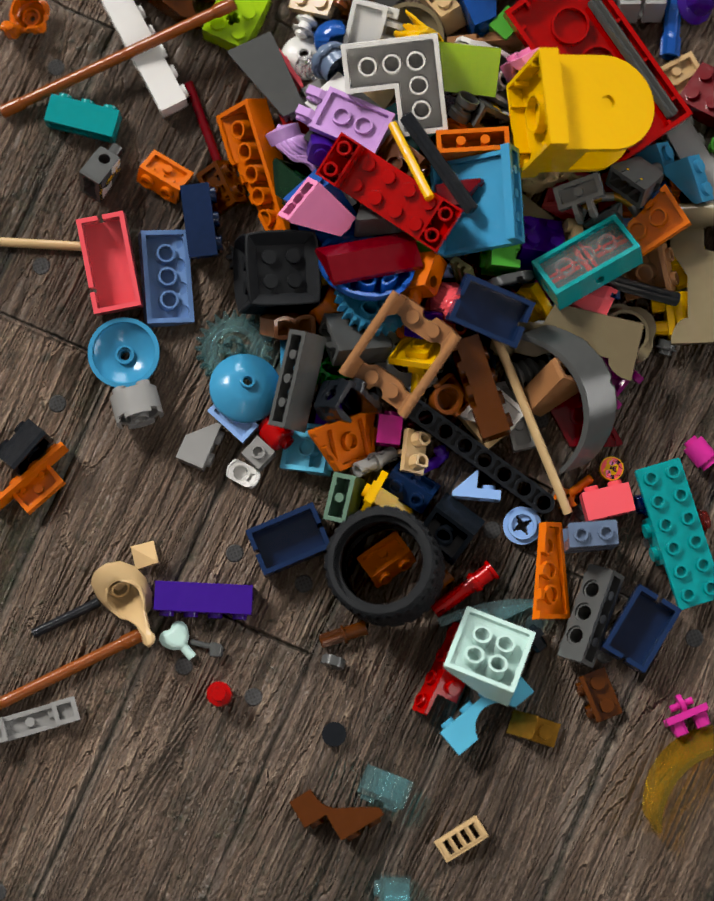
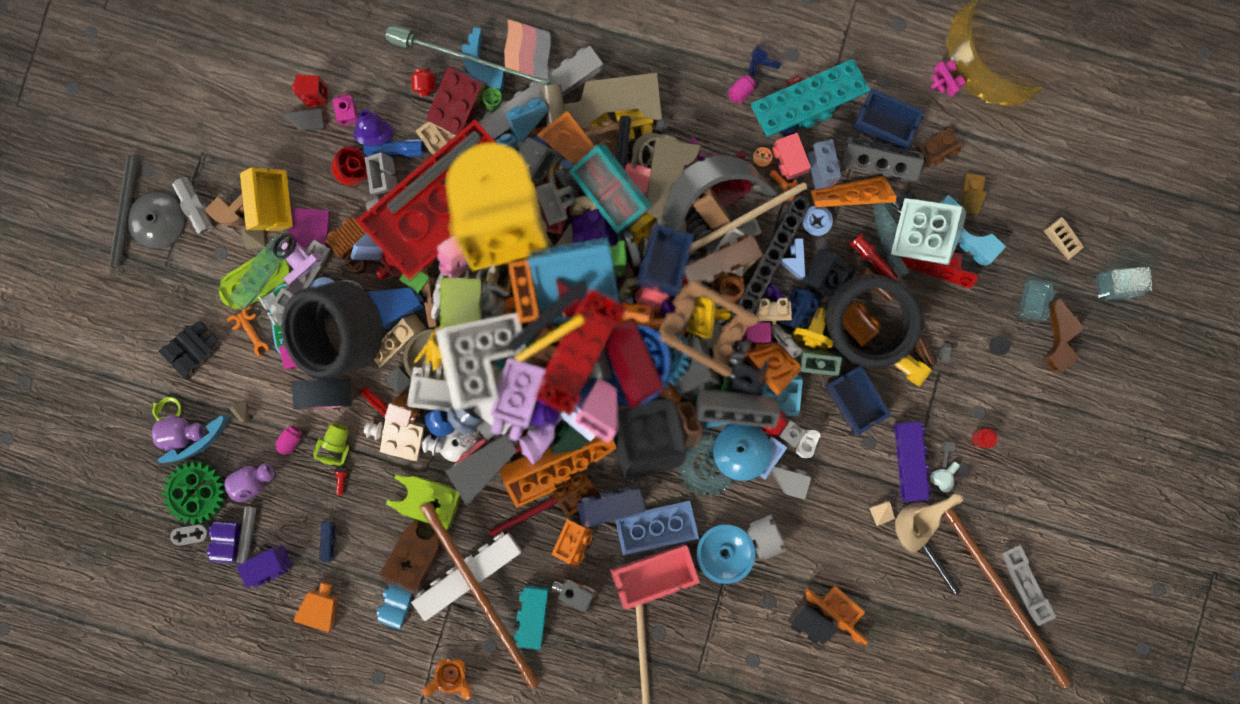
camera: 95 degrees left, 5 degrees up
(317, 619) = (915, 370): none -> yellow piece

